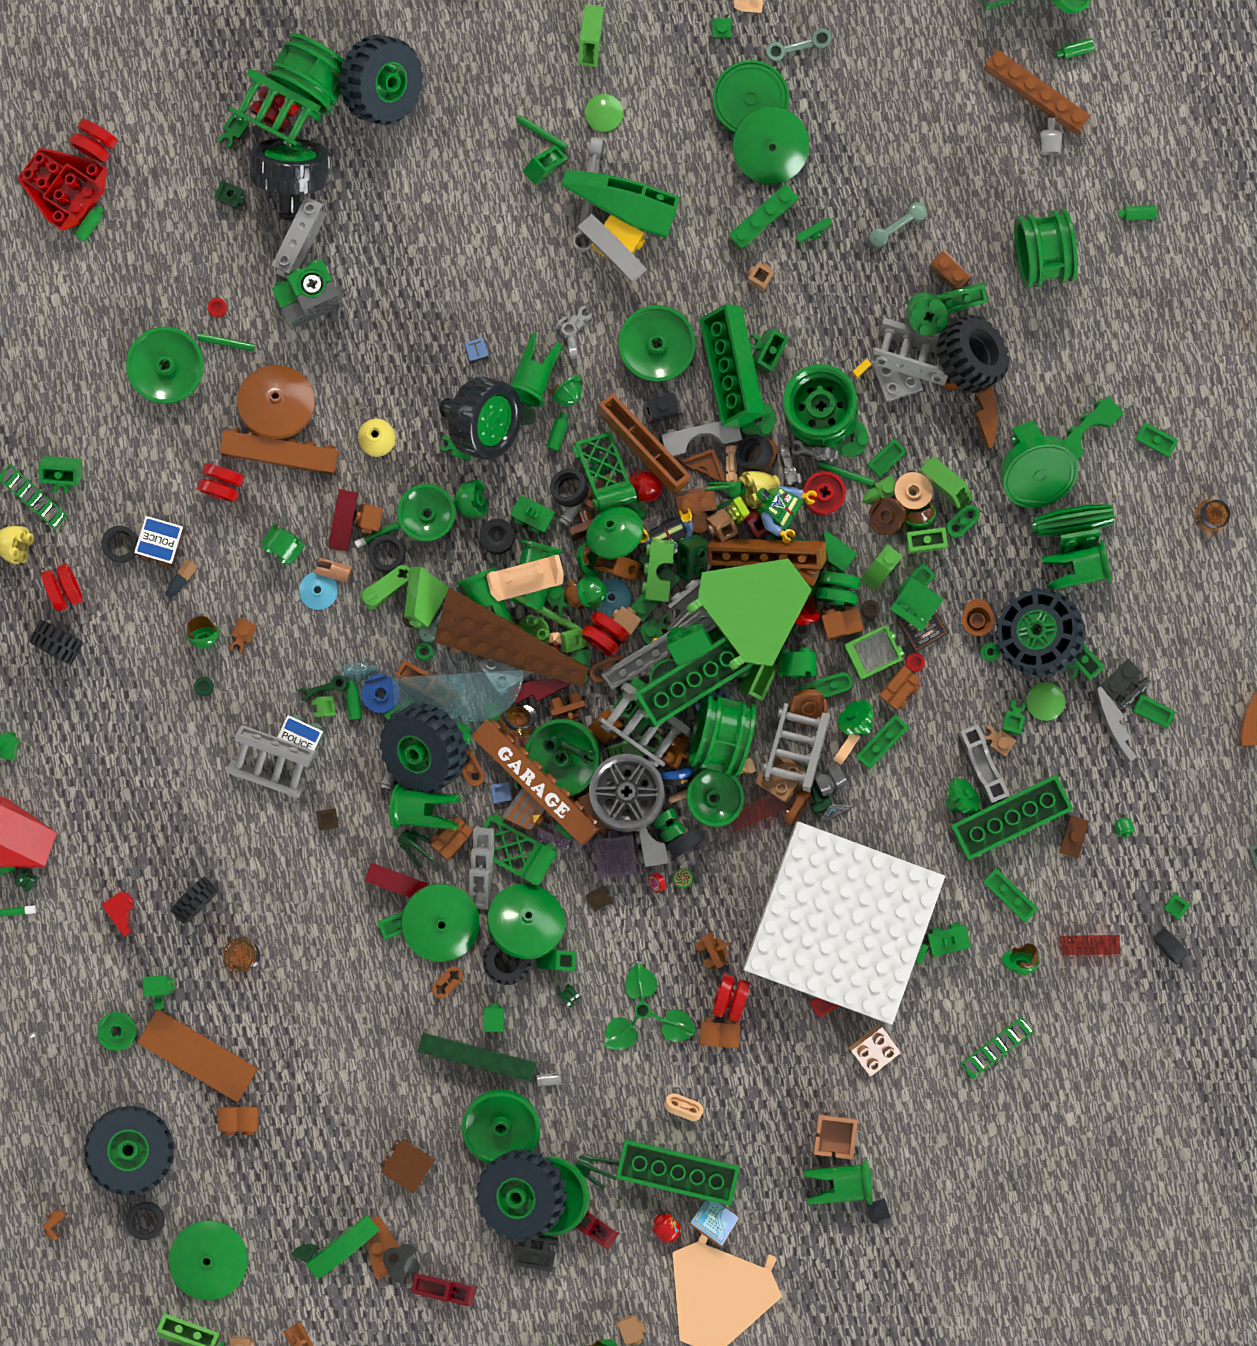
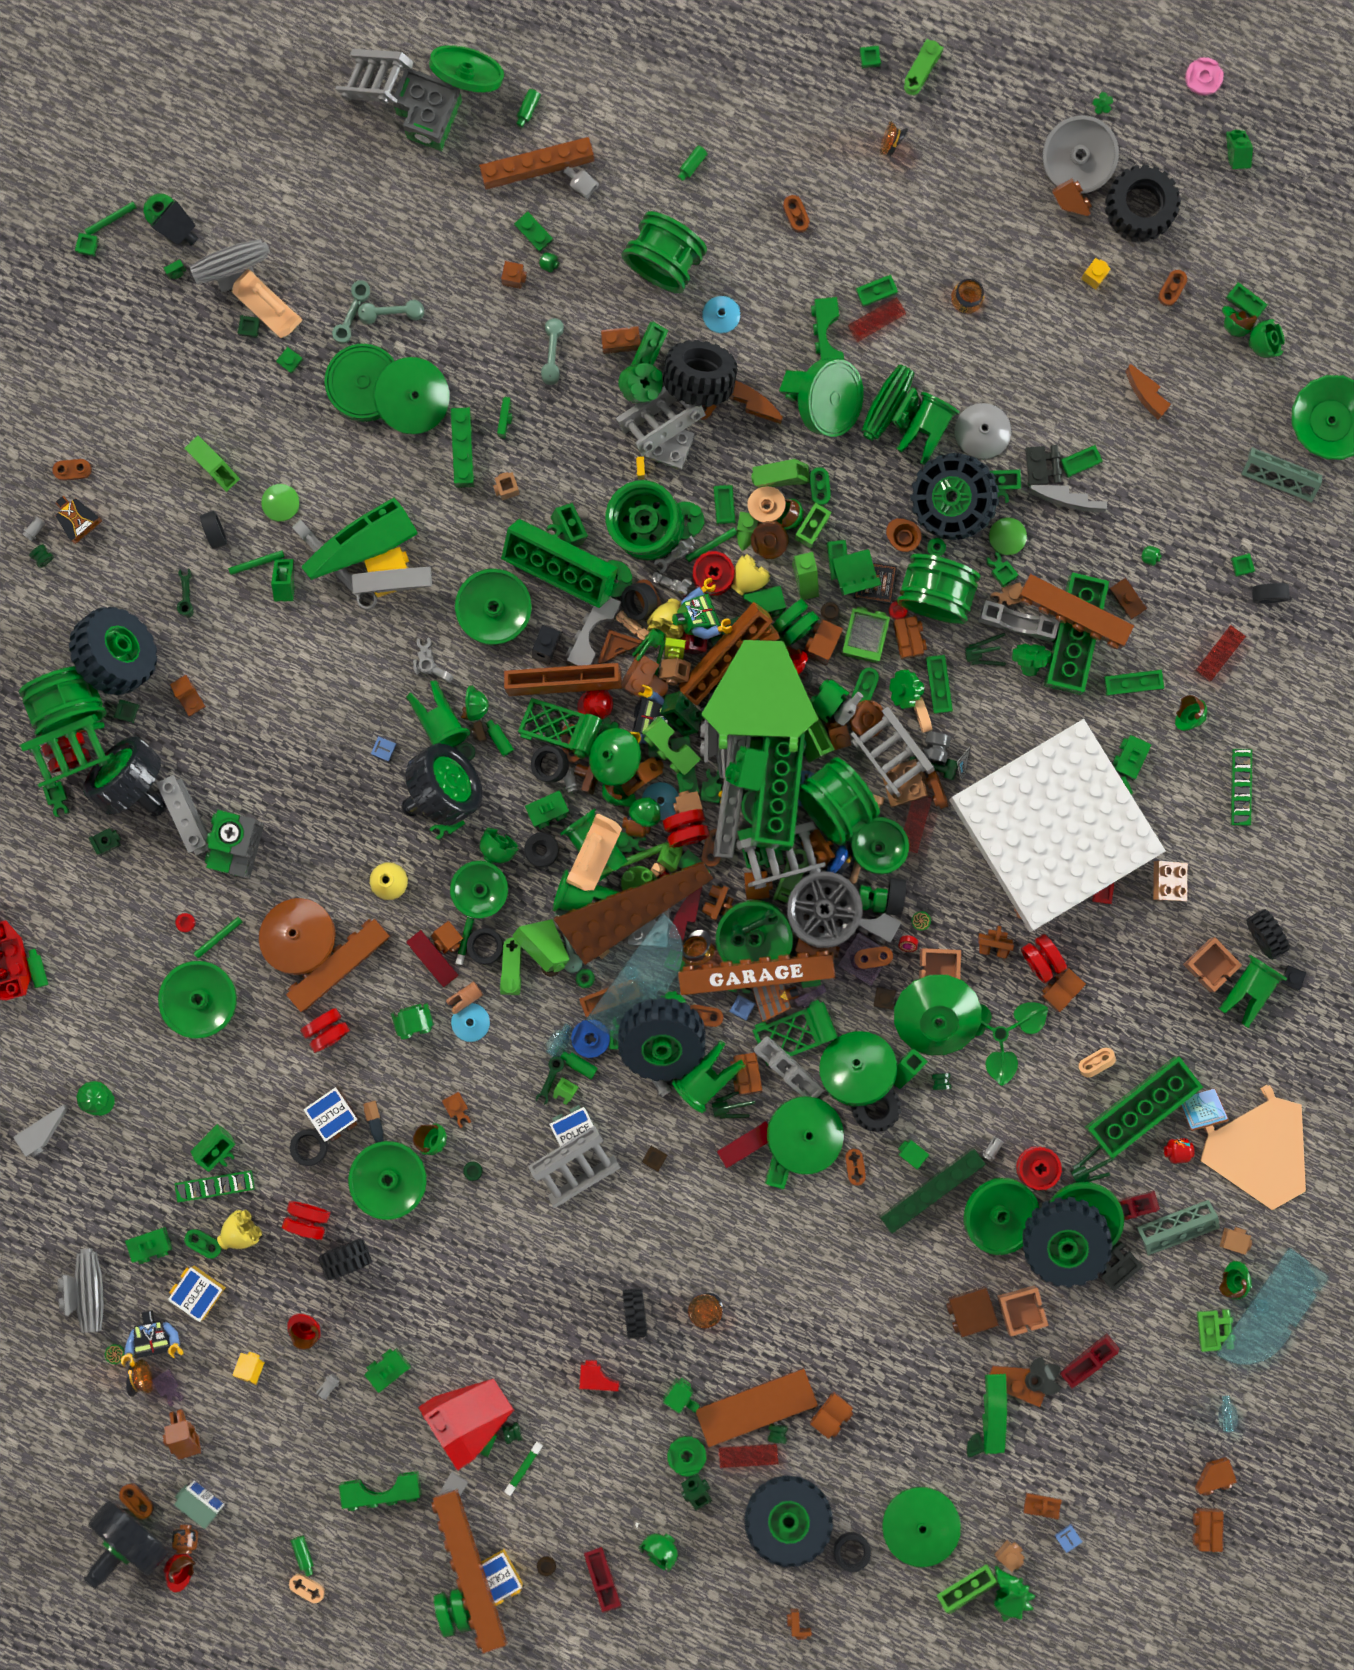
camera: 50 degrees left, 0 degrees up
(25, 349) = (95, 1098): none -> green piece
(27, 1069) = (660, 1550): none -> green cylinder
(94, 1060) = (696, 1491): none -> dark green brick
(125, 622) = (371, 1190): none -> green dish
(155, 1079) = (748, 1455): none -> clear red plate
(190, 1088) = (777, 1434): none -> dark green wheel
(344, 128) = (126, 711): none -> dark green plate
(394, 165) = (187, 695): none -> dark orange slope
(440, 1202) = (1020, 1309): none -> nougat piece
(465, 104) = (185, 603): none -> dark green brick
(539, 79) = (213, 529): none -> black tyre
(549, 413) = (478, 732): none -> dark brown plate
(562, 1138) = (1049, 1172): none -> red wheel
(603, 1279) = (1180, 1231): none -> sand green fence
(622, 861) = (873, 956): none -> dark orange plate
(630, 938) = (935, 999): none -> green dish
(657, 923) = (940, 962): none -> nougat piece
(778, 694) = (838, 734): none -> dark orange bracket
(801, 684) = (847, 709): none -> light grey piece
(809, 58) = (368, 312): none -> sand green piece
(845, 523) = (748, 576): none -> light yellow piece
(894, 1160) = (1268, 934): none -> black tyre
(930, 749) = (974, 652): none -> dark green plant
(932, 146) = (513, 275): none -> dark orange brick
(955, 678) = (938, 588): none -> green wheel
(966, 165) = (548, 262): none -> green piece
(980, 133) = (533, 231): none -> green plate
(1026, 801) = (1076, 612): none -> dark orange brick
(1033, 342) = (720, 323): none -> medium azure dish
(1100, 615) = (978, 442): none -> light grey dish
(1133, 458) = (877, 319): none -> clear red plate
(1165, 327) = (796, 214): none -> dark orange plate

